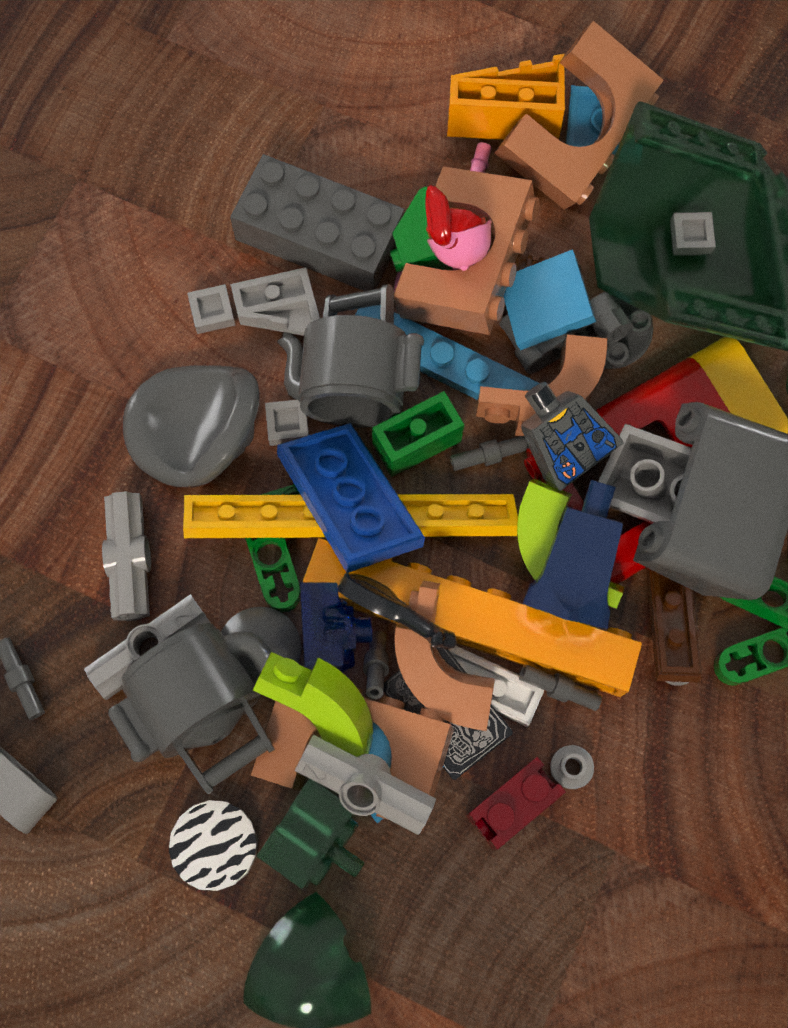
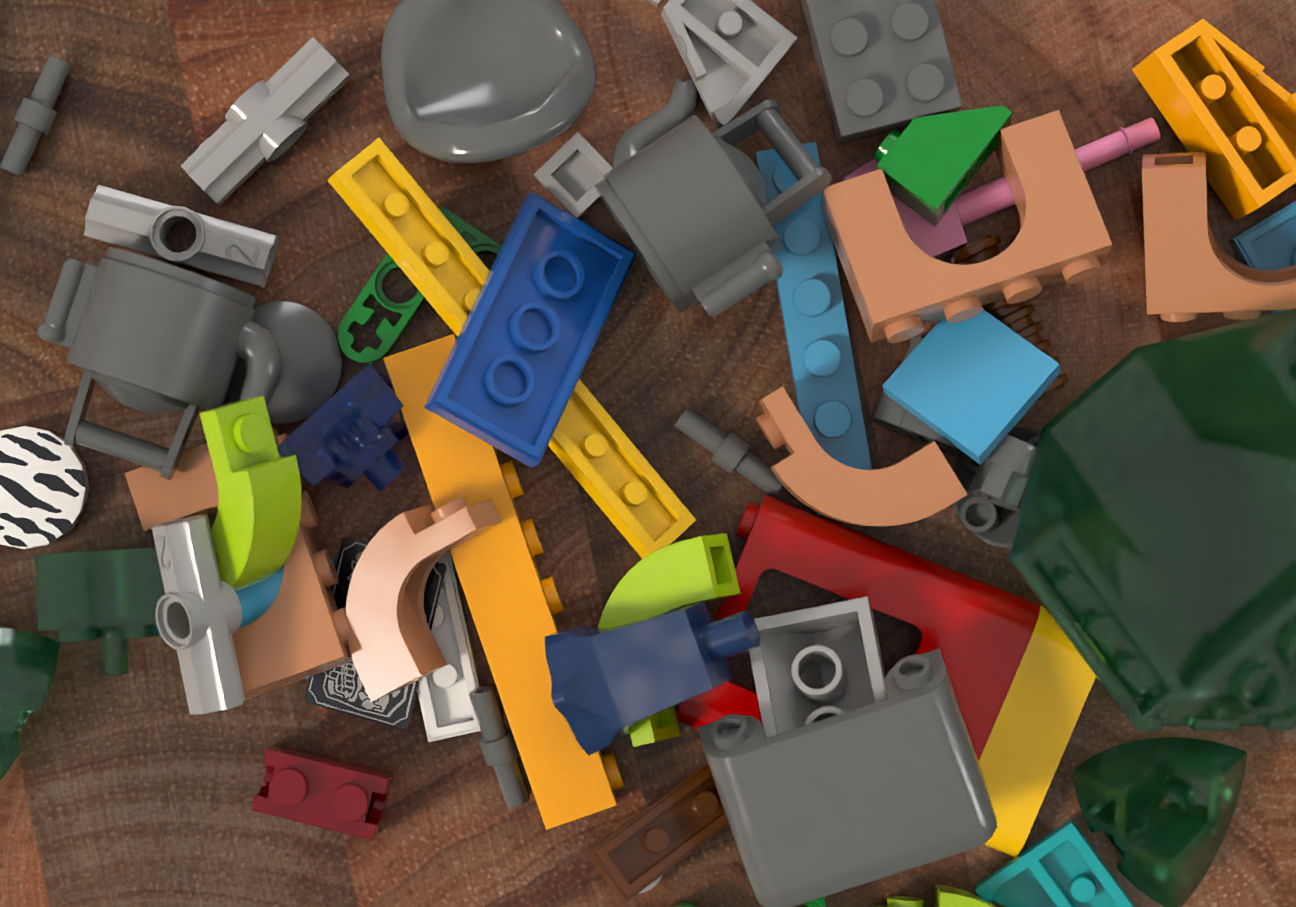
camera: 55 degrees right, 15 degrees up
(376, 665) = (358, 516): dark grey bar -> none
(385, 603) = (420, 466): black piece -> none
(417, 434) = (676, 349): green brick -> none
(455, 234) = (947, 219): hair -> none
(559, 771) = (432, 811): light grey plate -> none
(566, 435) = (794, 539): torso -> none
(692, 233) = (1223, 492): light grey plate -> none

